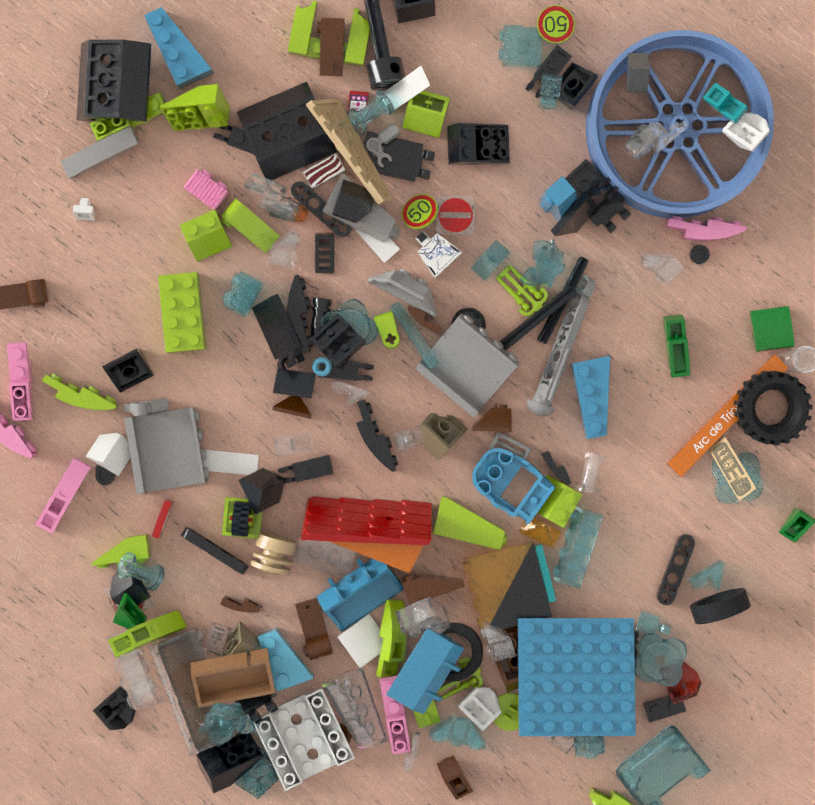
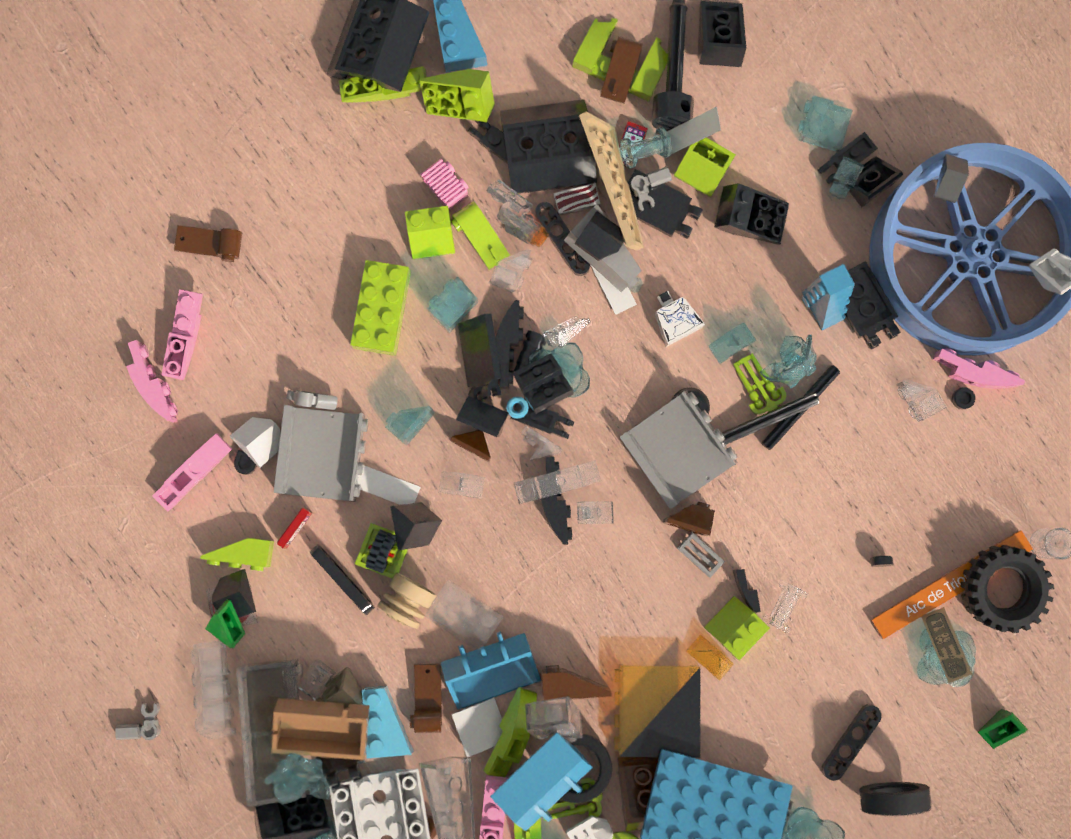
camera: 10 degrees right, 5 degrees down
(79, 721) = (148, 731): none -> light grey bar
(84, 210) = (306, 171): white tile -> none
(86, 398) = (248, 372): lime slope -> none
(100, 152) = (341, 113): light grey slope -> none
(115, 710) = (178, 730): black slope -> none
(128, 370) = (304, 354): black slope -> none
(147, 633) = (239, 651): lime slope -> none
(151, 576) = (263, 589): clear light blue piece -> none
(233, 405) = (408, 422): none -> clear light blue slope
(247, 605) = (359, 652): reddish brown slope -> none
(309, 469) = (471, 517): black hinge -> none
(324, 269) = (561, 269): black slope -> none
(344, 291) = (564, 332): none -> clear slope
(373, 420) = (557, 482): none -> clear slope
(375, 528) = (526, 602): red piece -> none
(387, 326) = (600, 385): lime piece -> none
(407, 289) = (632, 349): light grey wedge -> none
(414, 335) = (627, 401): clear light blue axle -> none
(419, 211) = (669, 269): piece -> none
(419, 316) = (638, 382): reddish brown slope -> none
(440, 433) = (628, 517): dark tan slope -> none
(455, 215) = (707, 283): piece -> none
(464, 525) = (627, 626): lime slope -> none
(496, 472) = (677, 578): dark azure slope -> none
(499, 642) = (633, 770): clear slope -> none
(545, 572) = (704, 705): teal tile -> none
(555, 24) = (868, 110): piece -> none
(563, 344) = (750, 512): light grey piece -> none
(577, 547) = (748, 687): clear light blue brick -> none
(584, 207) = (853, 309): black tile -> none
(592, 392) = (808, 518): dark azure wedge -> none
(649, 623) = (807, 795): clear light blue plate -> none
(652, 137) = (952, 252): clear plate -> none
(663, 412) = (881, 561): none -> black tile
(677, 345) = (915, 491): green slope -> none
(713, 573) = (894, 759): clear light blue slope -> none
(725, 103) = (1040, 237): teal slope -> none
(772, 328) = (1025, 501): green slope -> none

